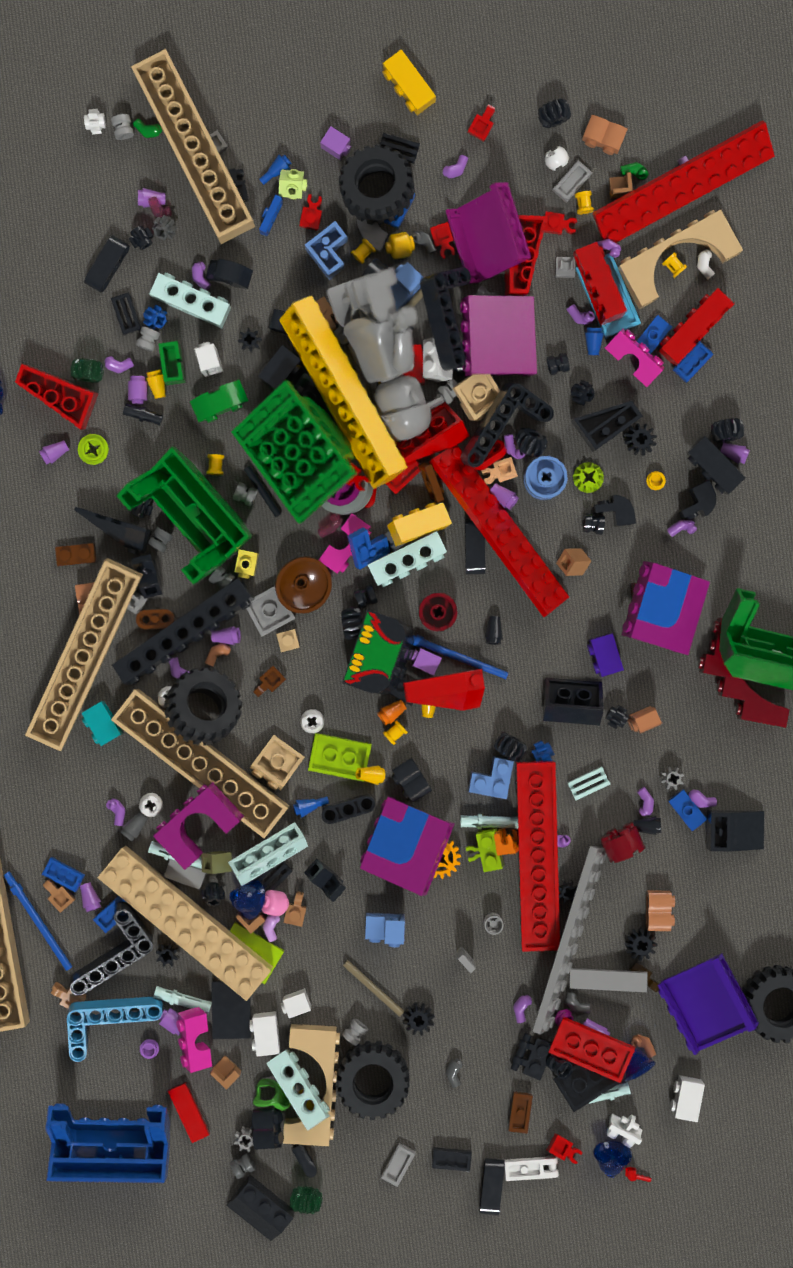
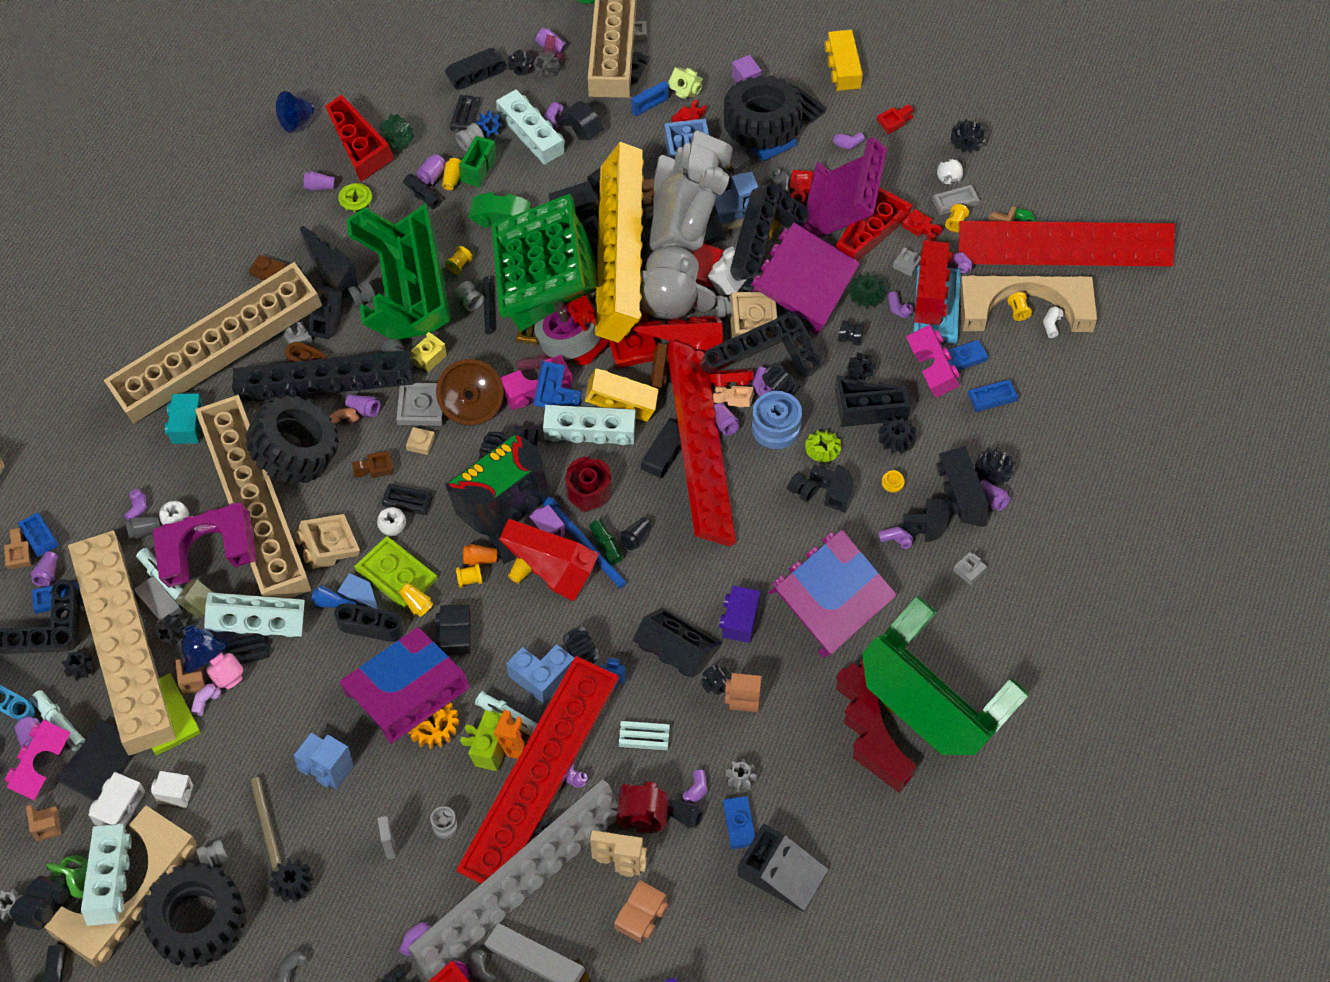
camera: 30 degrees right, 30 degrees down
(117, 366) = (427, 147): medium lavender arm -> none
(143, 509) = (363, 258): black gear -> none
(208, 359) = (513, 172): white brick -> none
(245, 337) = (562, 178): black gear -> none
(274, 170) = (686, 63): blue cone -> none
(294, 698) = (405, 502): none -> black tile
(295, 912) = (241, 698): medium nougat plate -> none
(323, 787) = (357, 590): none -> medium blue tile
(325, 879) = (295, 676): black brick -> none
(400, 245) = (759, 168): yellow head -> none
(476, 649) = (606, 541): none -> dark green pin
(557, 319) = (867, 290): none -> clear green gear
(573, 562) = (760, 511): medium nougat panel -> none
(594, 340) = (900, 329): blue cone -> none
(604, 135) = (1008, 175): nougat brick -> none
(631, 881) = (623, 850): none -> tan plate
(647, 940) = (587, 936): black gear -> none
(696, 327) = (1016, 361): red wedge -> none
(700, 800) = (760, 816): medium lavender arm -> none
(746, 523) = (970, 568): none -> light grey tile

